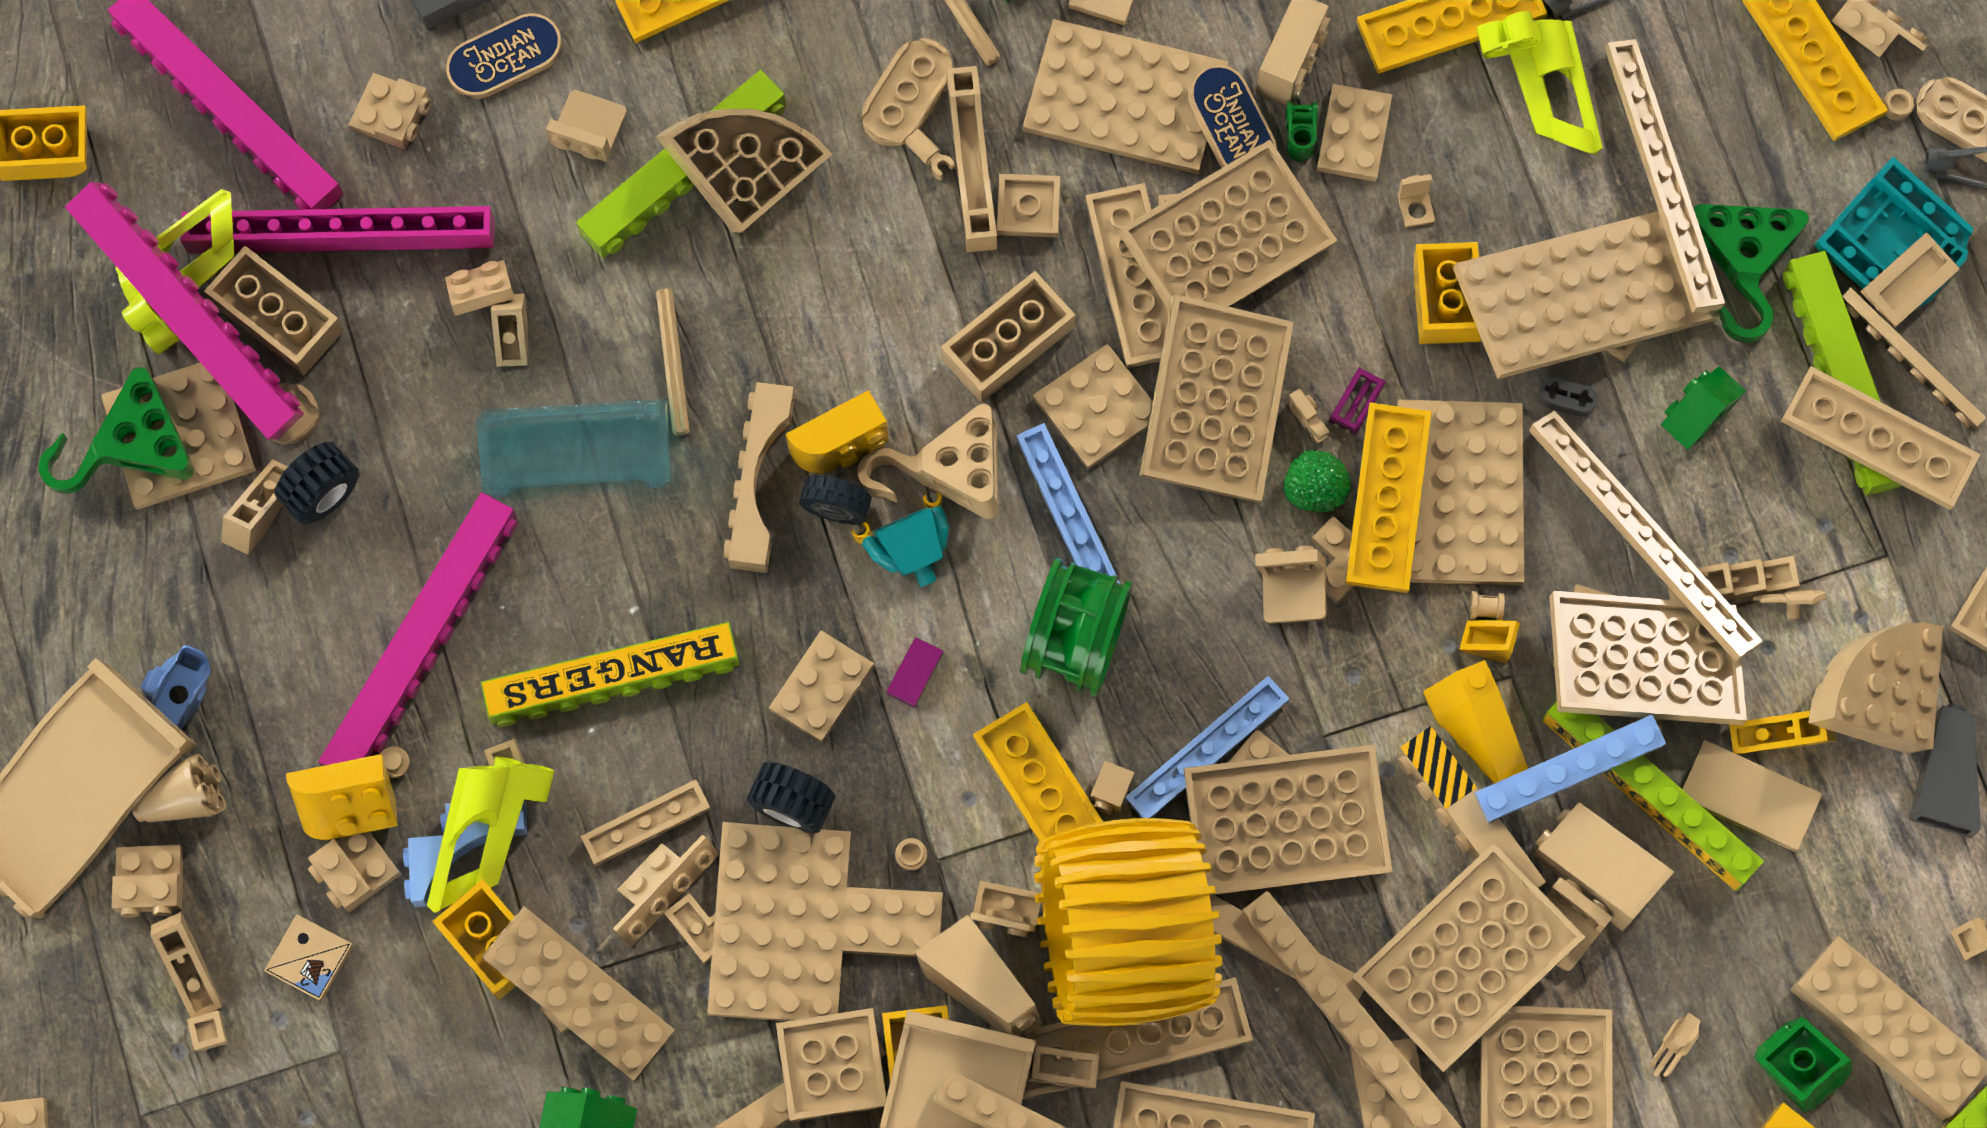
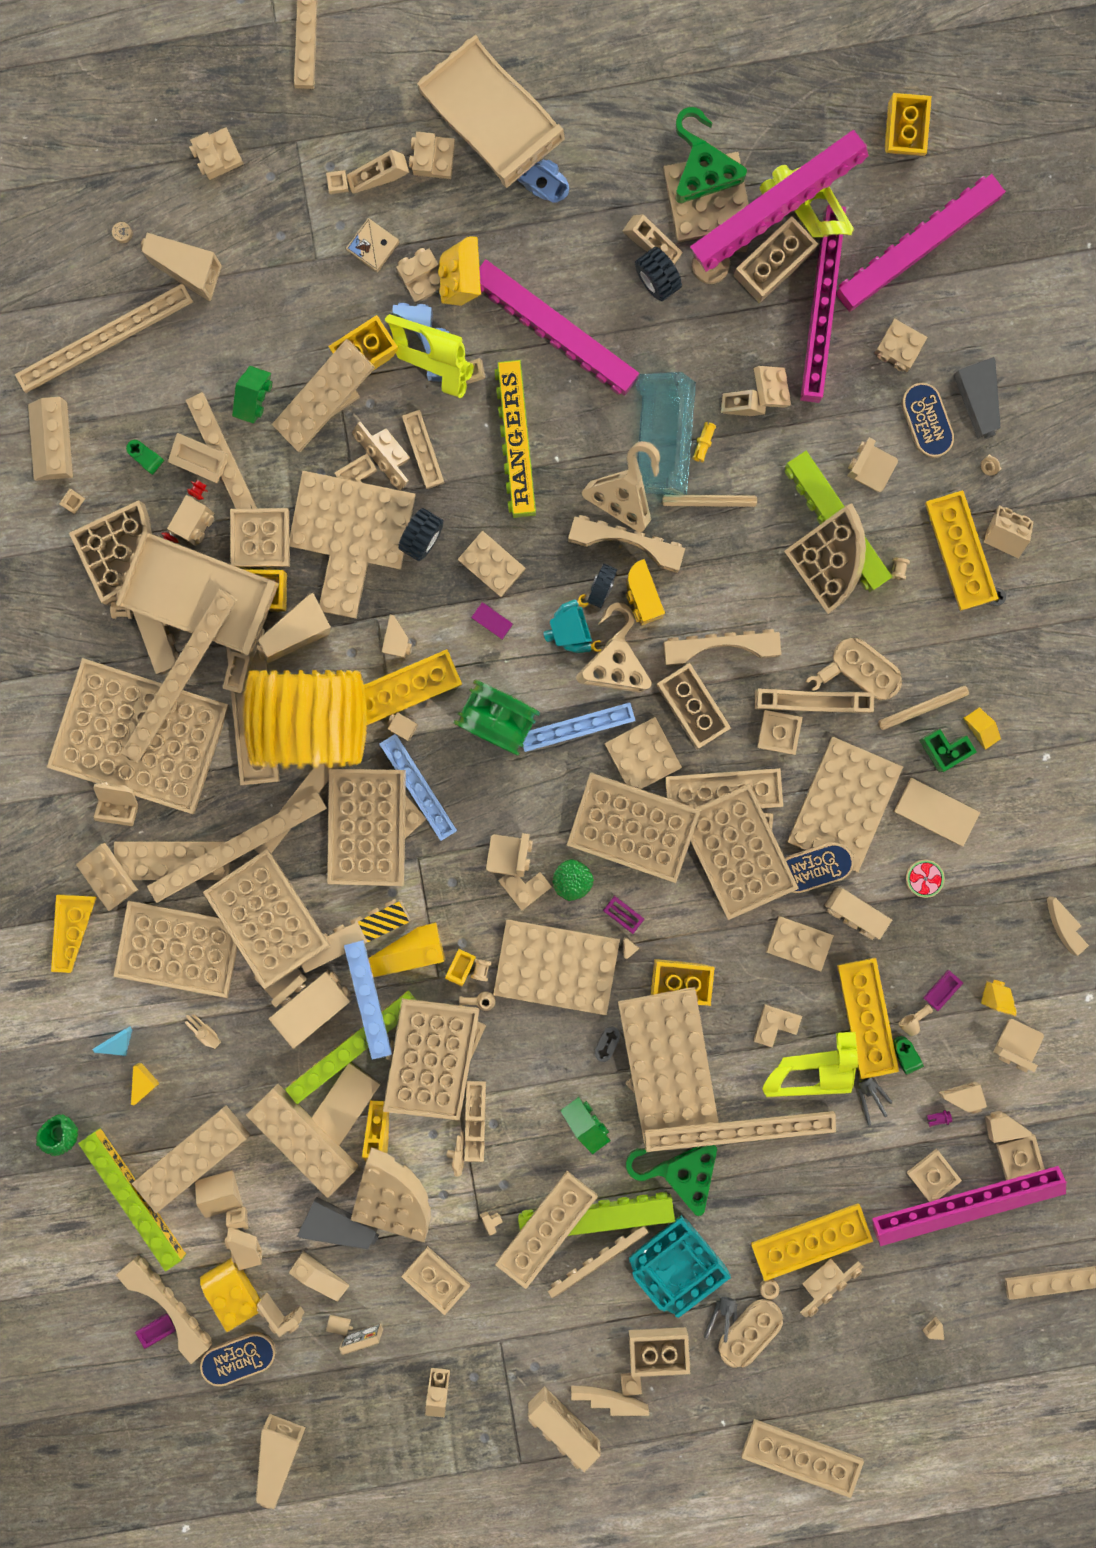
camera: 100 degrees right, 15 degrees up
(183, 793) = (479, 180): tan cone -> none
(396, 761) = (482, 305): tan plate -> none
(579, 382) = (704, 442): none -> yellow pin
(679, 503) = (613, 490): none -> tan piece
(743, 64) = (899, 568): none -> tan bush
(911, 854) = (381, 603): tan plate -> none
(922, 366) = (762, 645): none -> tan arch
(968, 819) = (396, 641): none -> tan slope
(1005, 907) = (335, 651): tan bracket -> none
(1301, 125) = (809, 910): green piece -> none
(1305, 411) = (621, 881): tan plate -> none
(1388, 498) = (555, 921): yellow plate -> none
(1410, 383) = (629, 948): none -> tan slope
(1416, 190) = (754, 973): tan bracket -> none
(1484, 158) = (772, 1020): none -> tan plate
(1538, 604) = (478, 1001): none -> tan bar
(1645, 536) = (508, 1073): tan plate -> none
(1803, 1063) = (179, 1102): green slope -> none
(1821, 849) = (302, 1140): none -> tan brick
(1888, 533) = (490, 1222): none -> tan tile
(1910, 280) = (648, 1270): tan piece -> none
(1939, 977) = (217, 1194): none -> tan slope

